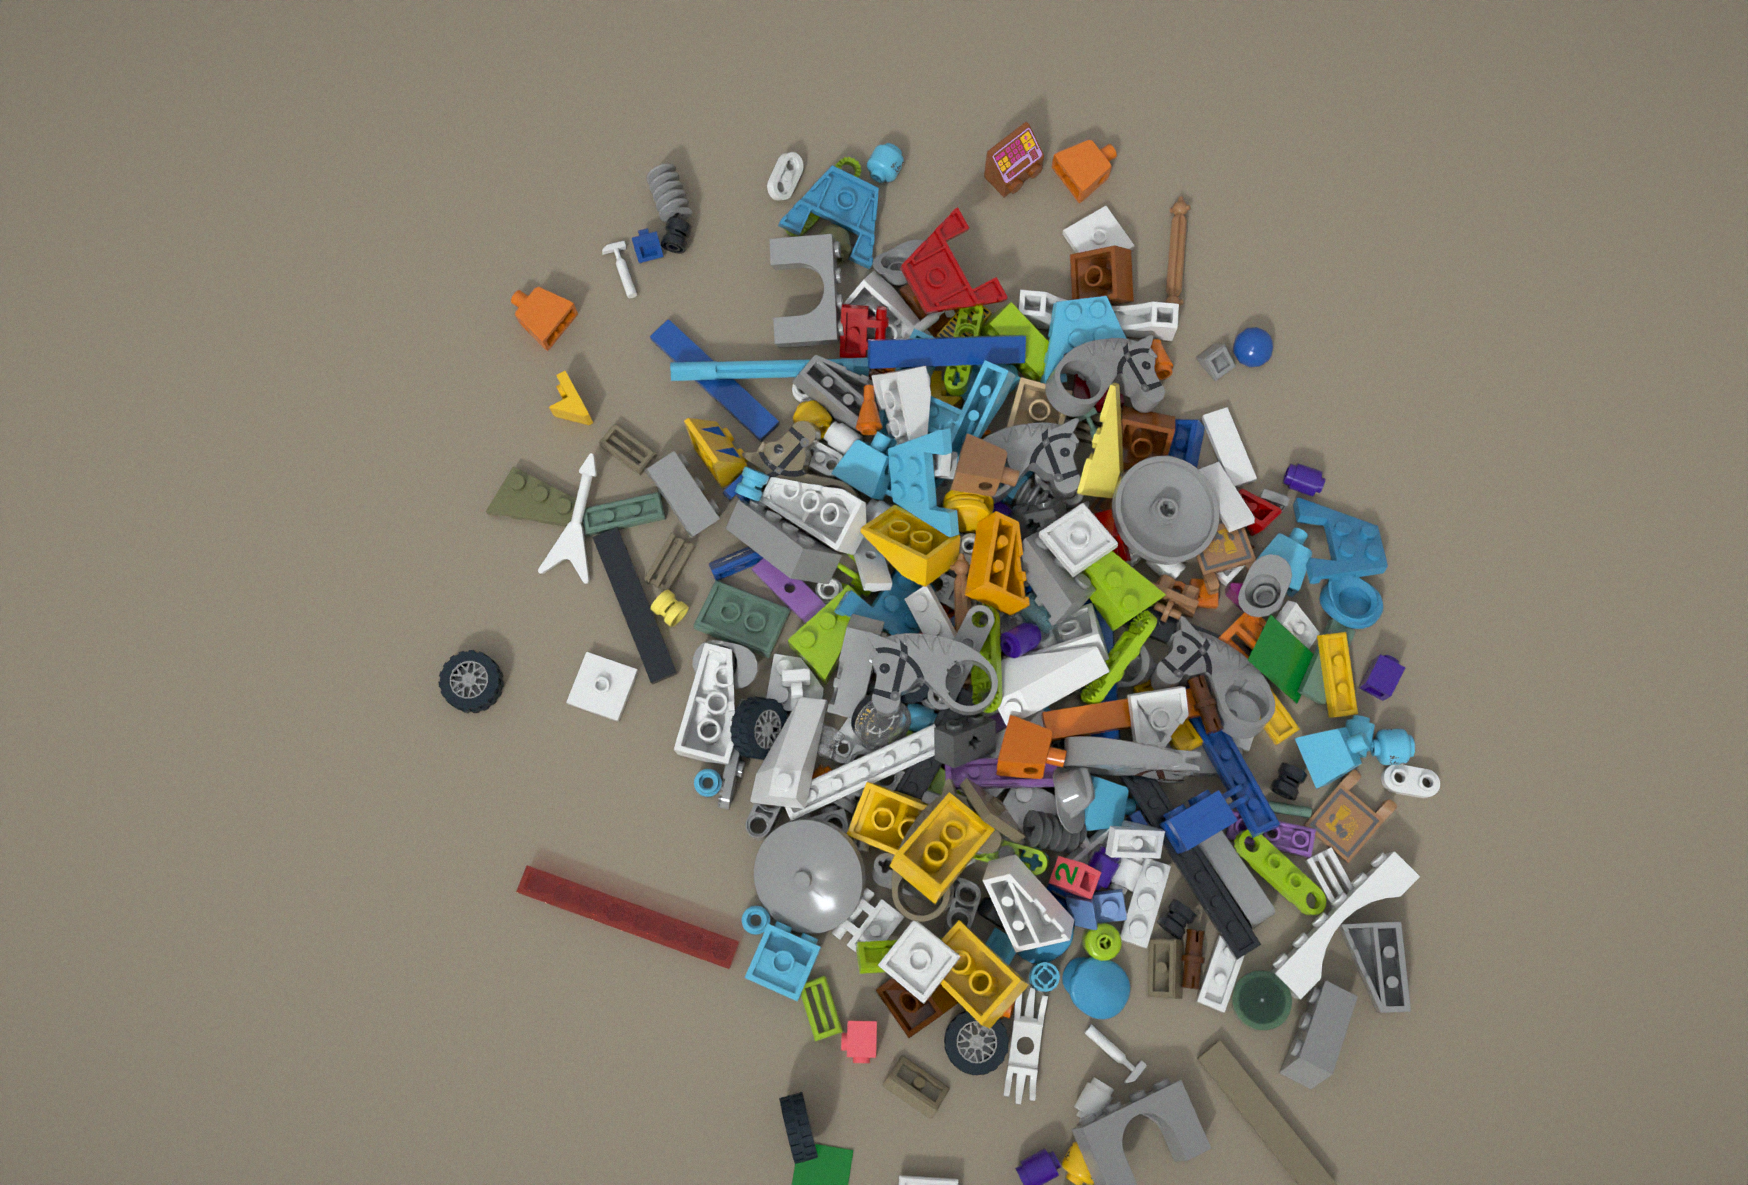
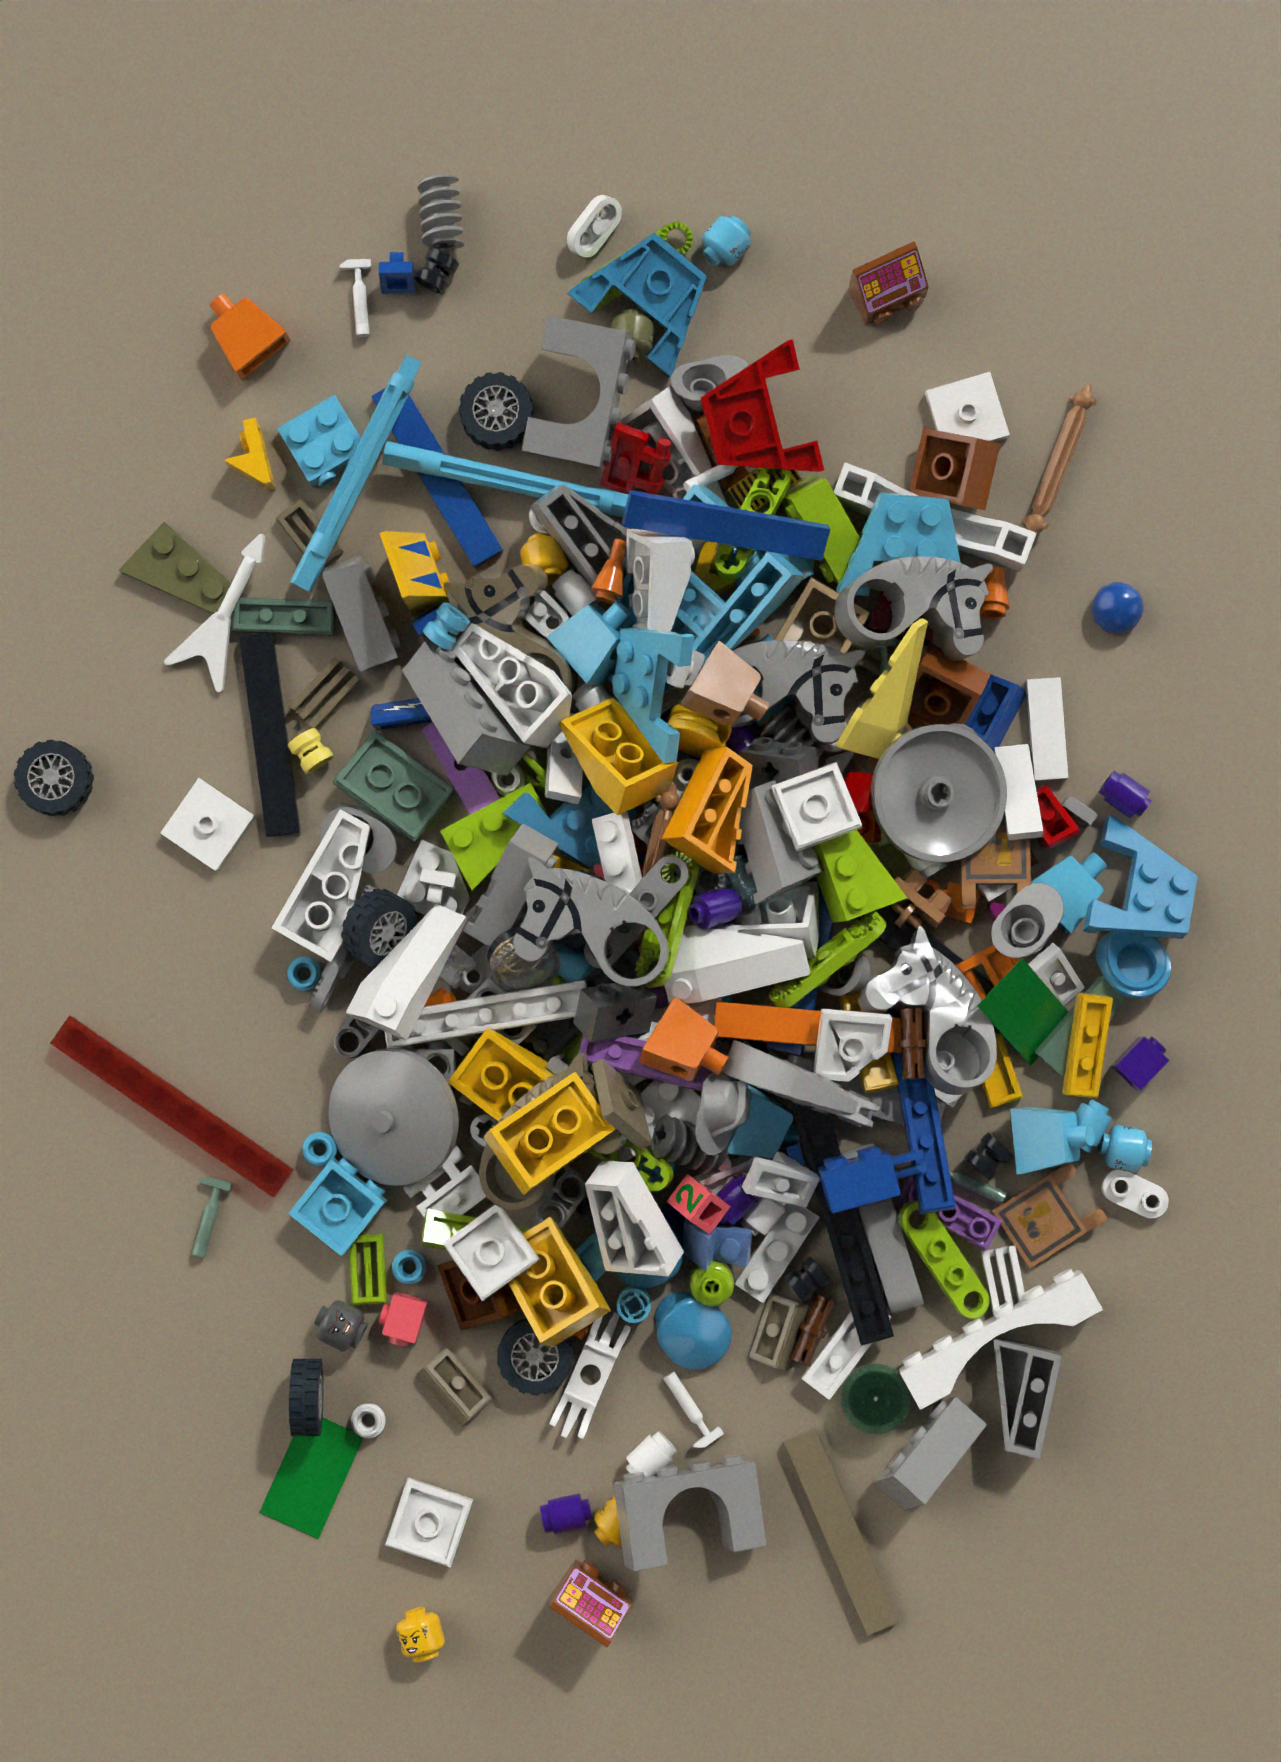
camera: 20 degrees right, 10 degrees up
(622, 378) = (321, 441): none -> medium azure plate
(652, 393) = (356, 474): none -> medium azure piece
(679, 998) = (209, 1215): none -> sand green piece
(747, 323) = (495, 411): none -> black wheel
(810, 1060) = (340, 1325): none -> dark grey head
(863, 997) = (398, 1269): none -> medium azure plate
(863, 1135) = (357, 1420): none -> white plate
(1083, 167) = (977, 313): orange torso -> none
(1216, 361) = (1066, 612): light grey slope -> none

